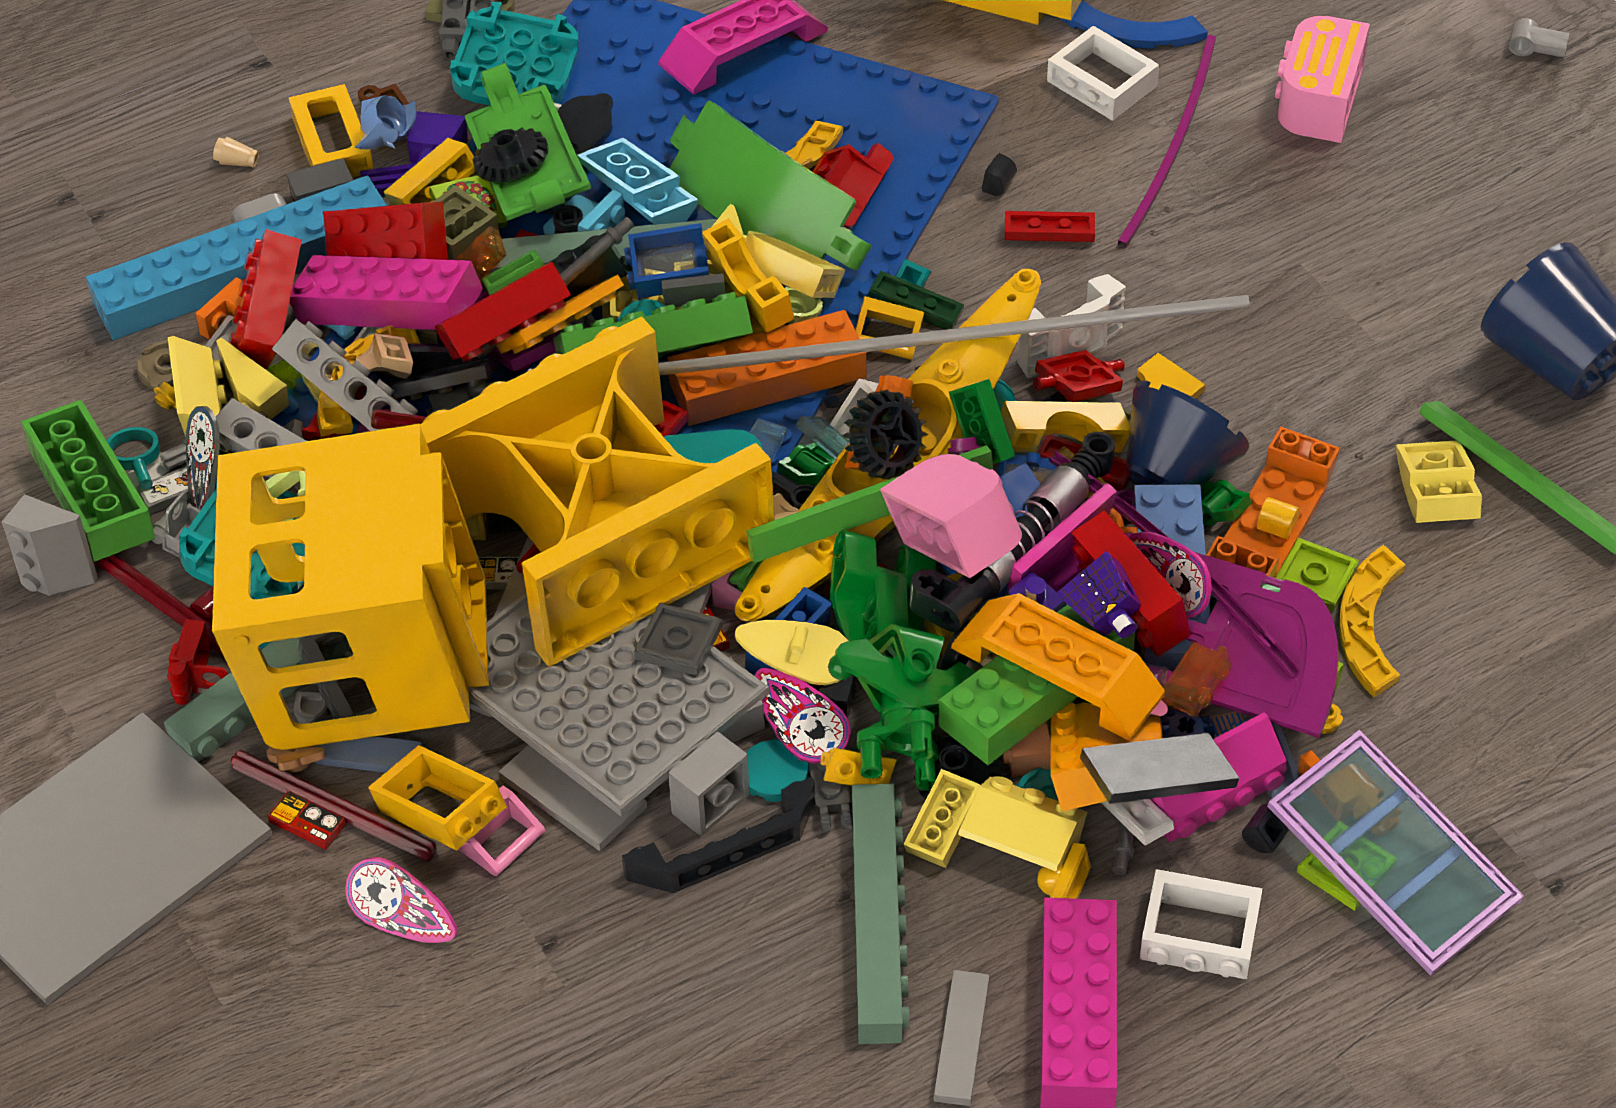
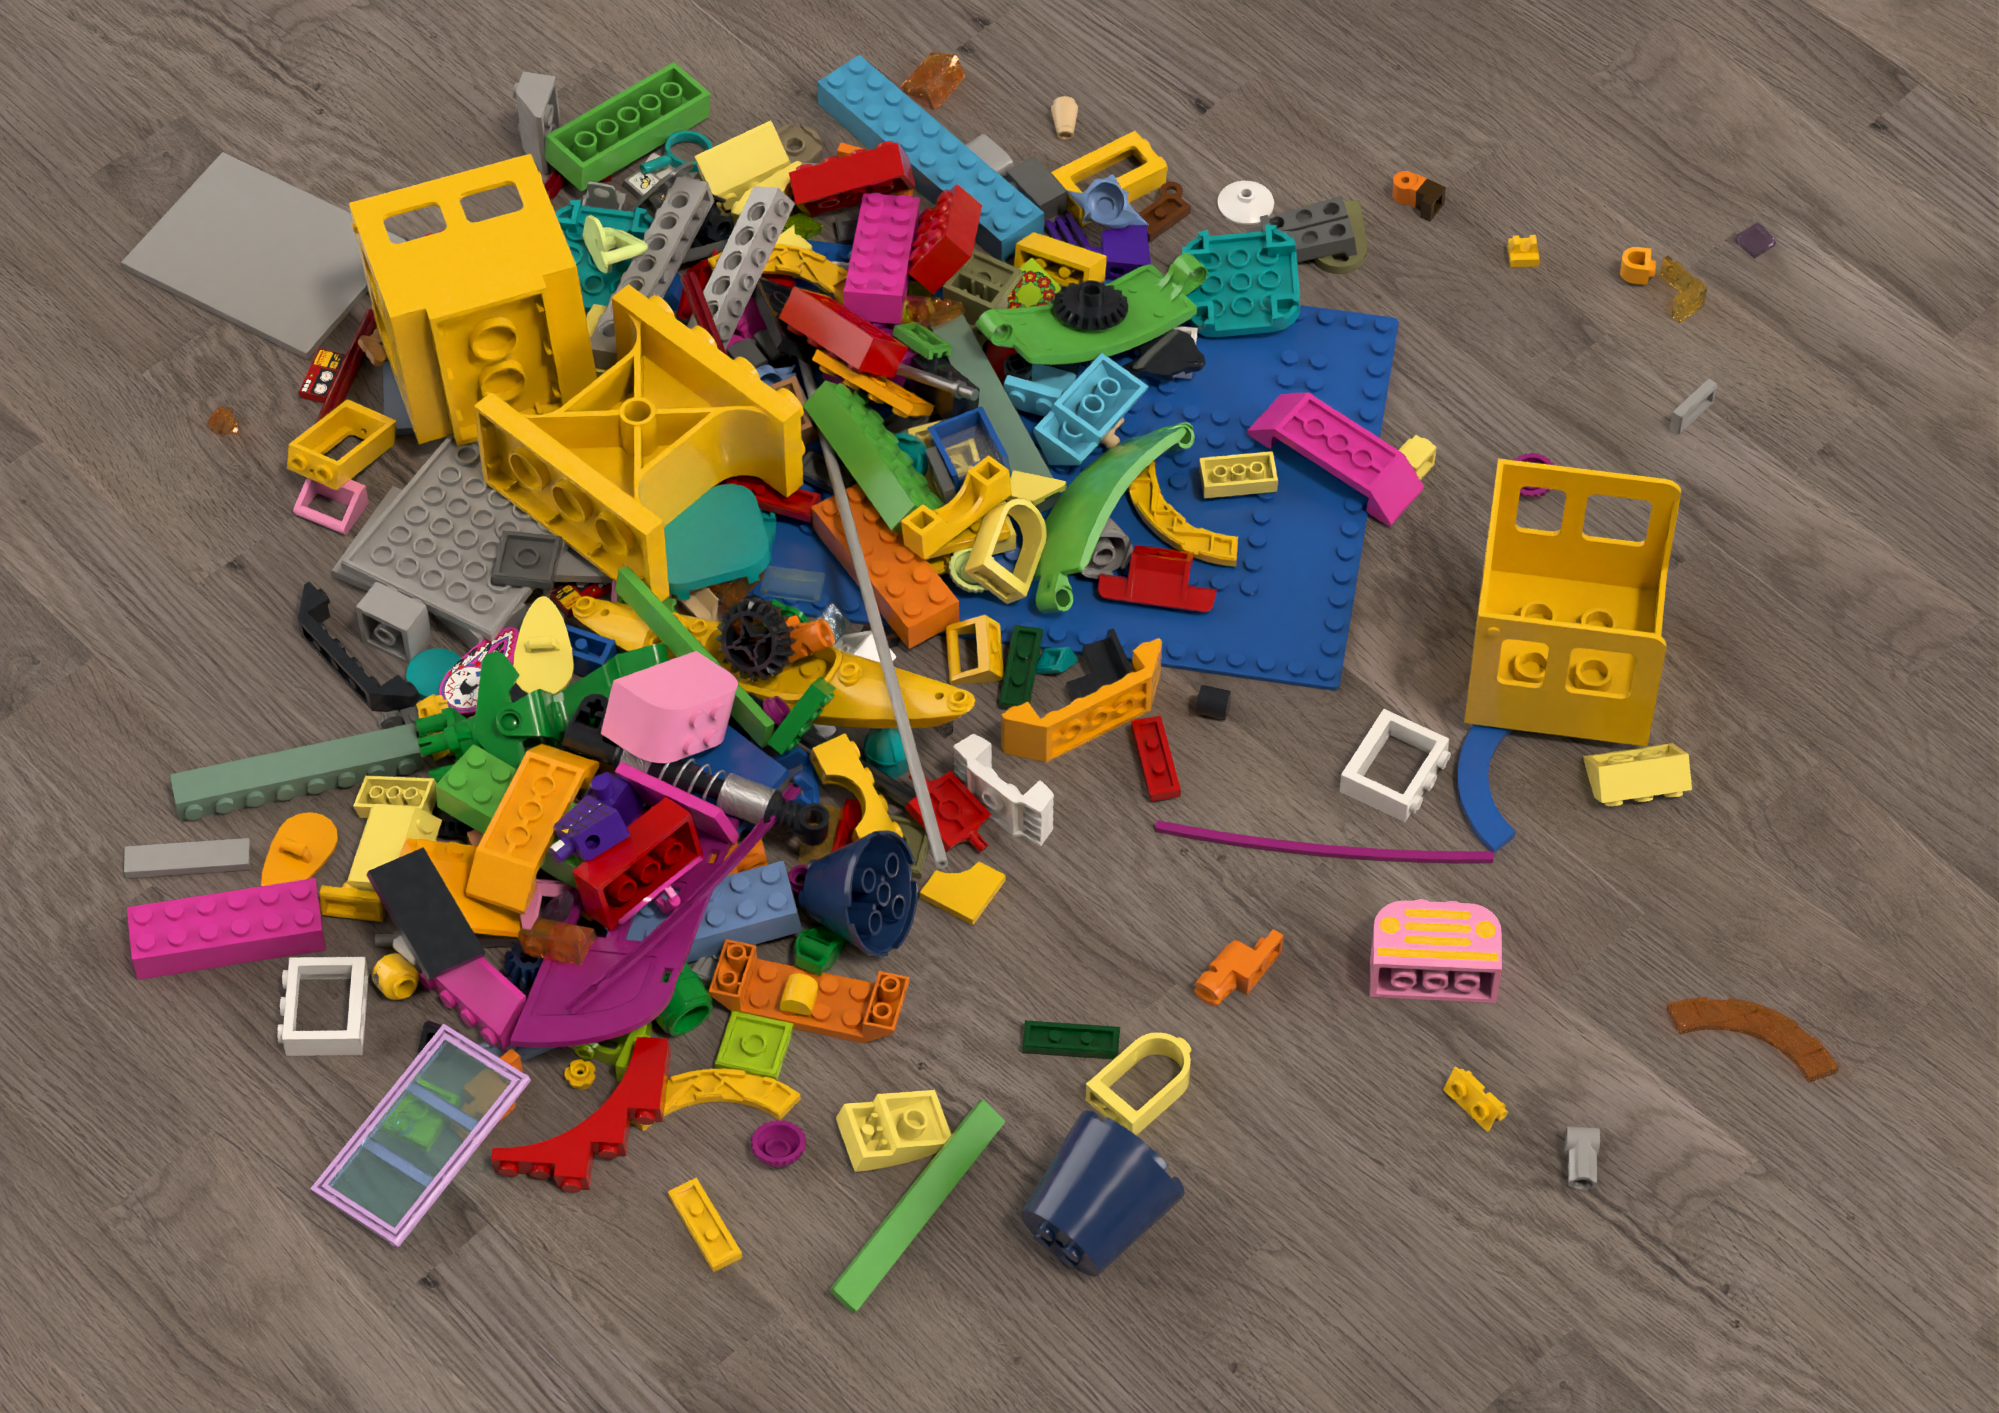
camera: 75 degrees right, 5 degrees up
(128, 237) = (935, 78): none -> clear orange bracket
(336, 924) = (223, 421): none -> clear orange plate
(388, 354) = (801, 275): tan slope -> none
(397, 902) = (242, 450): shield -> none
(399, 55) = (1245, 202): none -> white dish
(746, 98) = (1238, 474): none -> light yellow piece
(945, 234) = (1107, 665): none -> black panel
(971, 207) = (1087, 717): none -> light orange slope
(979, 933) = (299, 848): none -> light orange shield
(1177, 852) = (395, 976): none -> yellow head
(1303, 210) = (1238, 968): none -> orange plate
(1352, 343) = (1071, 1040): none -> dark green tile
(1410, 695) = (606, 1132): none -> red arch
(1431, 325) = (1112, 1106): none -> light yellow window
(1443, 567) = (778, 1143): none -> magenta hat
(1468, 93) = (1470, 1096): none -> yellow hinge
(1520, 645) = (705, 1224): none -> yellow tile

